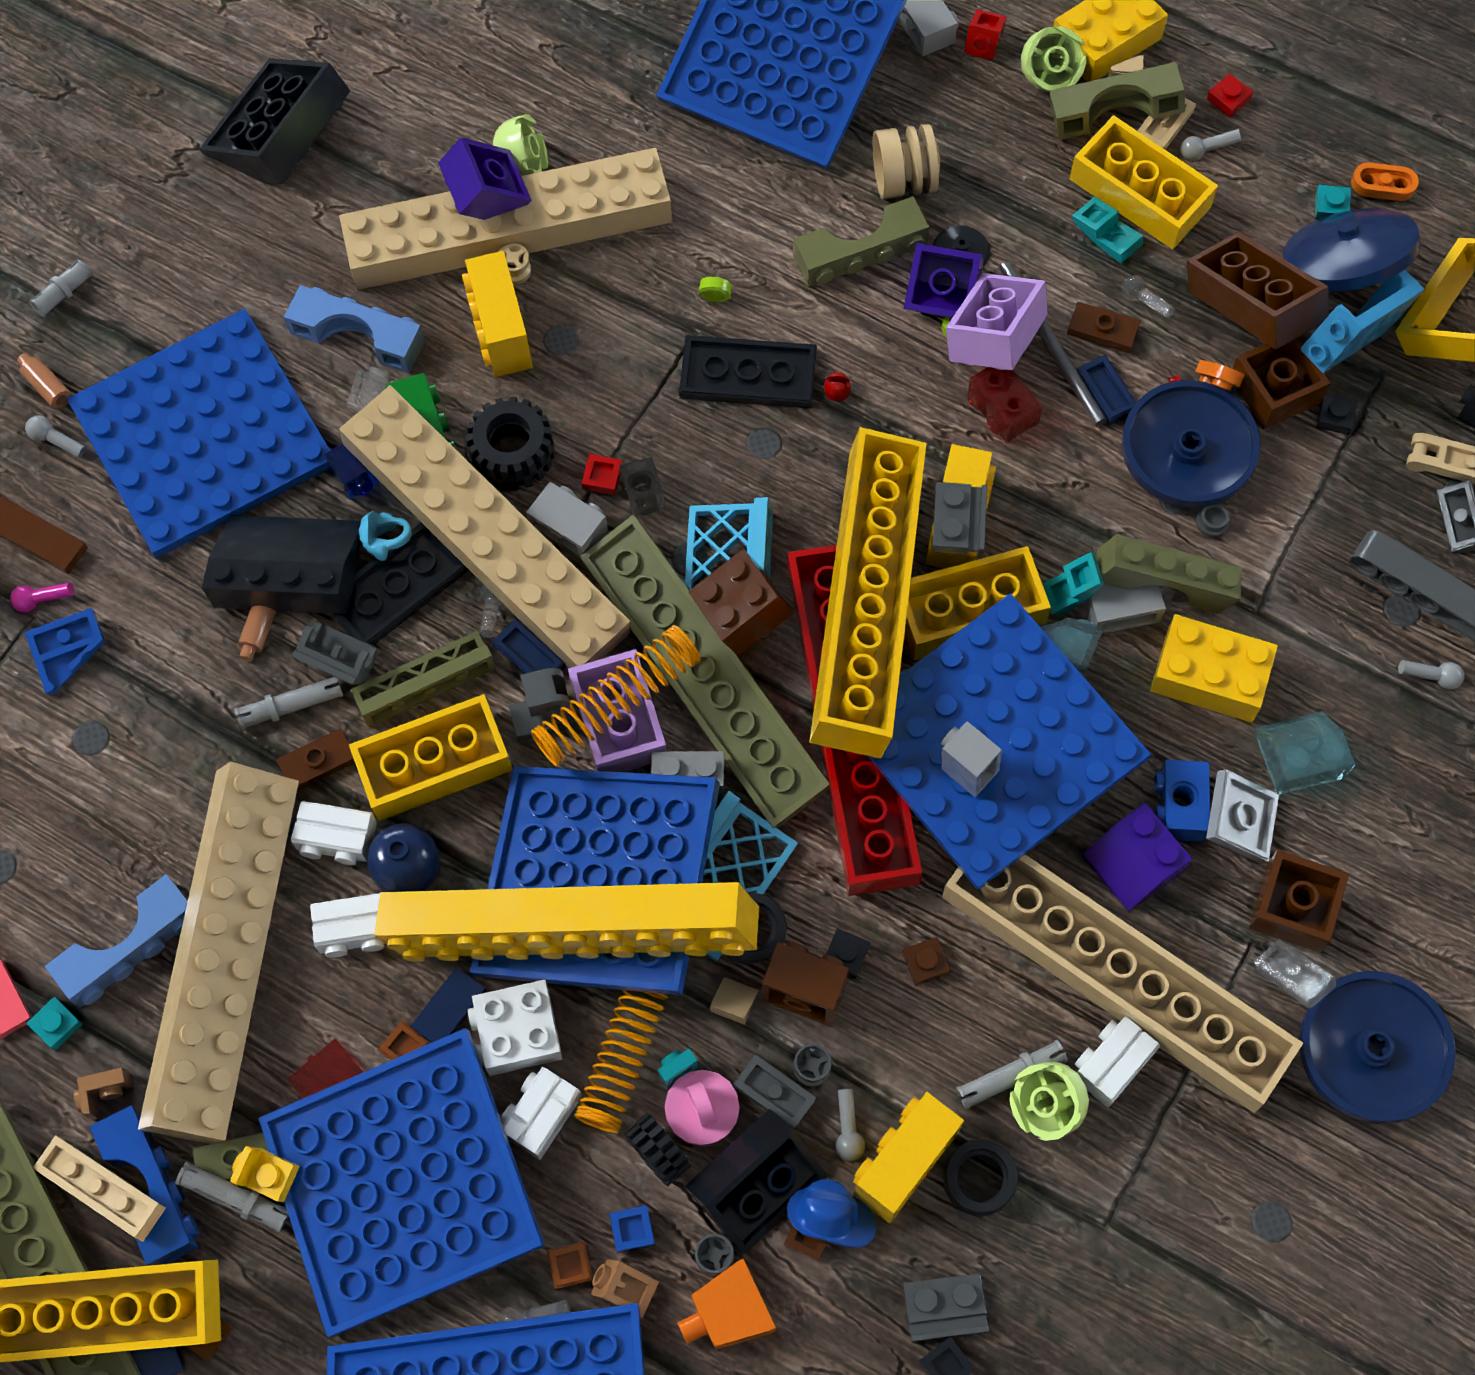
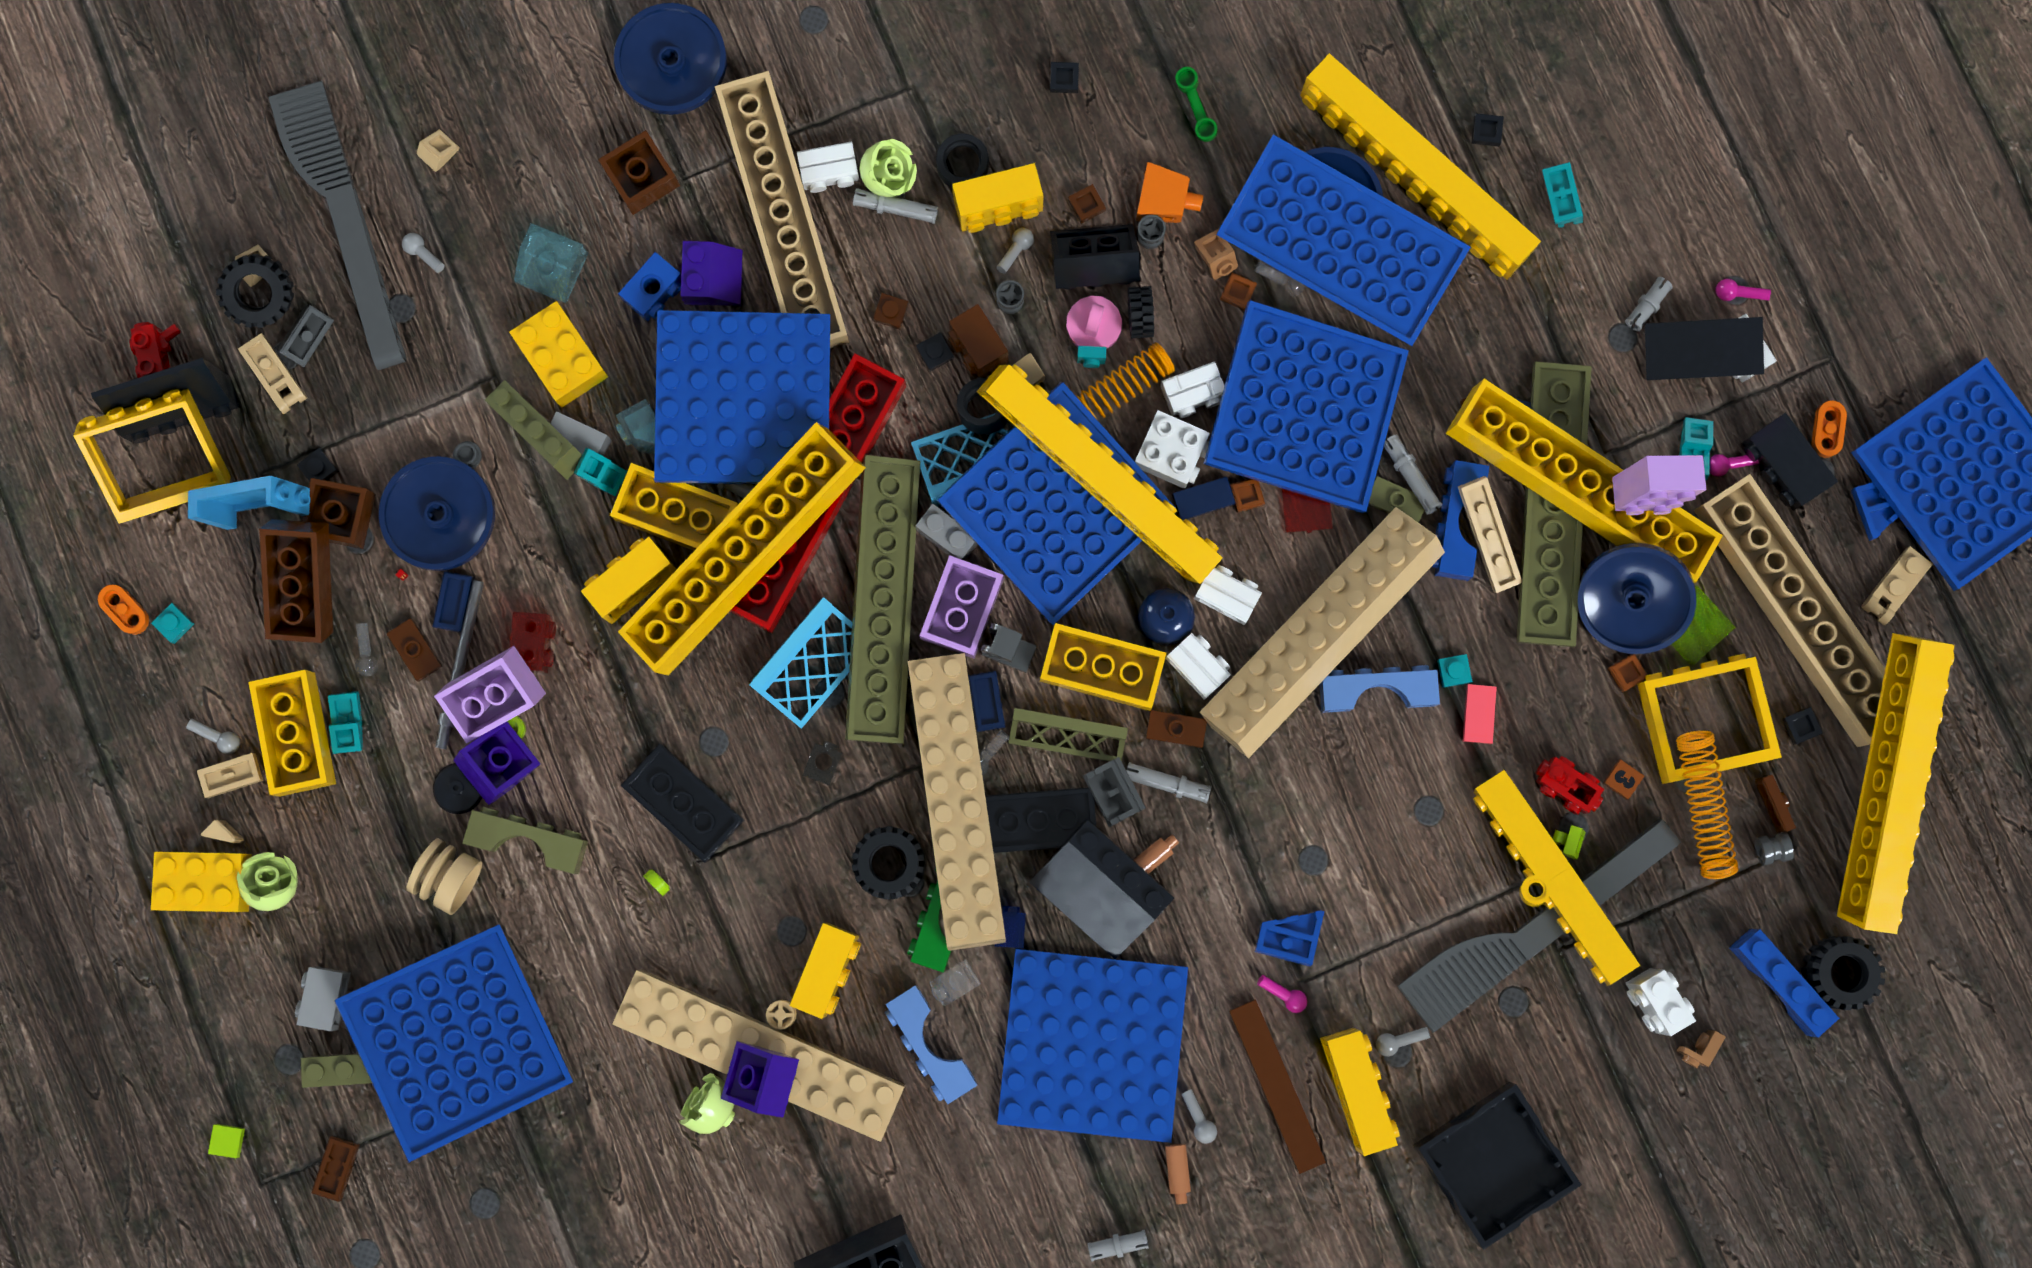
camera: 145 degrees left, 15 degrees up
(105, 1085) = (1446, 601): medium nougat bracket -> none
(264, 1173) = (1383, 471): yellow bracket -> none
(376, 524) = (1033, 849): medium azure piece -> none
(567, 519) = (891, 776): light grey brick -> none
(601, 474) = (842, 795): red plate -> none
(632, 1229) = (1187, 283): blue plate -> none
(682, 646) = (1025, 604): light orange piece -> none
(740, 602) = (827, 615): reddish brown brick -> none
(774, 1091) = (1044, 299): dark grey plate -> none
(831, 1214) = (1067, 203): blue piece -> none
(834, 387) = (636, 739): red hinge -> none
(945, 1307) = (1039, 109): dark grey plate -> none
(959, 518) = (642, 557): dark grey plate -> none
(970, 758) = (776, 380): light grey brick -> none
(984, 34) = (290, 951): red bracket -> none
(1153, 90) = (219, 796): olive arch -> none
(1219, 375) = (373, 546): orange plate -> none
(1229, 95) = (163, 764): red plate -> none
(1242, 816) = (625, 248): light grey tile -> none
(1295, 973) = (679, 134): clear plate -> none
(1355, 248) = (203, 564): dark blue dish -> none

